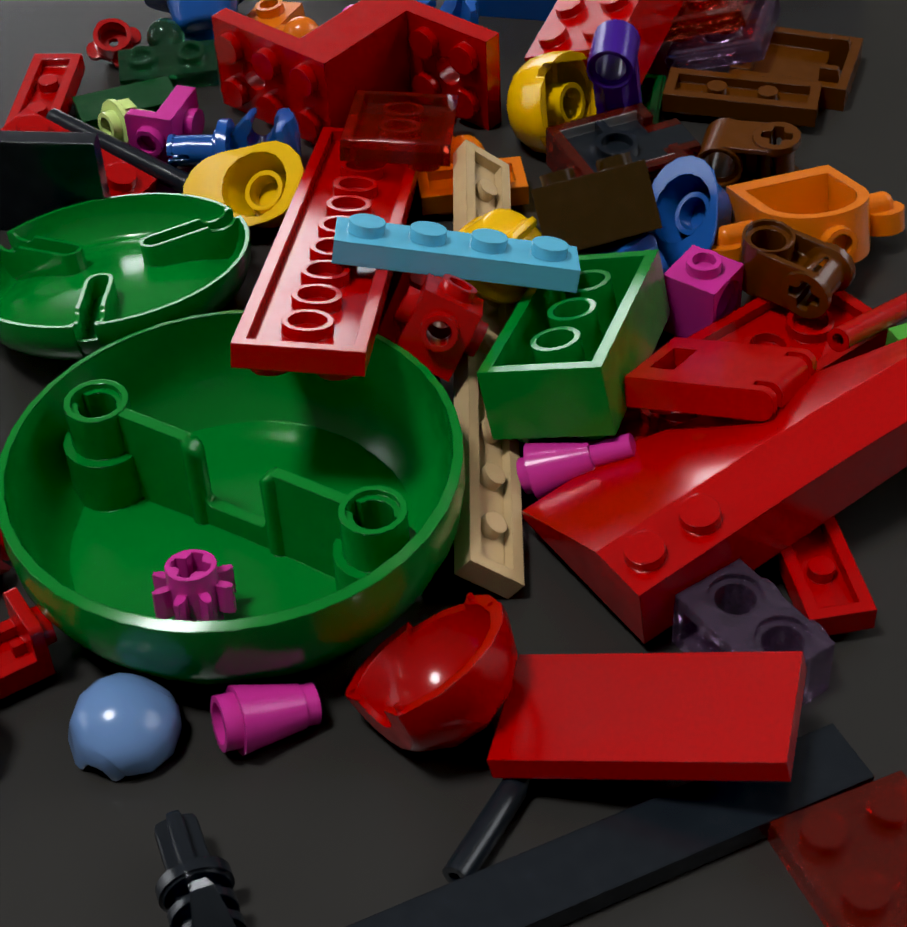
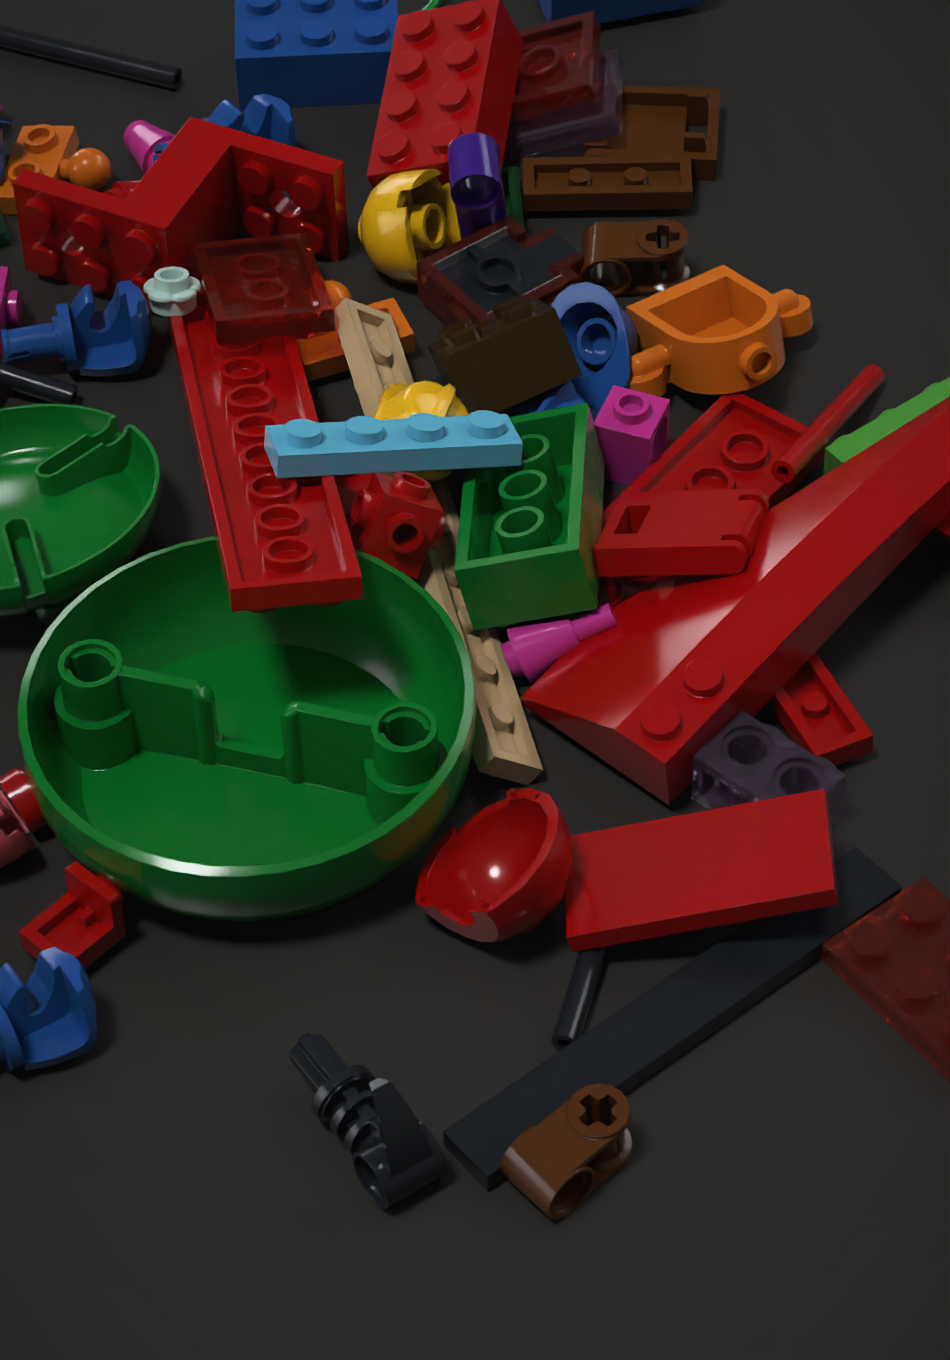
camera: 15 degrees left, 5 degrees up
(124, 726) = (216, 971): medium blue hair -> none
(194, 588) = (242, 831): dark pink gear -> none
(251, 180) = (122, 374): yellow piece -> none
(262, 714) = (342, 936): dark pink cone -> none
(323, 122) = (172, 291): none -> light aqua plate
(786, 267) = (713, 395): reddish brown piece -> none

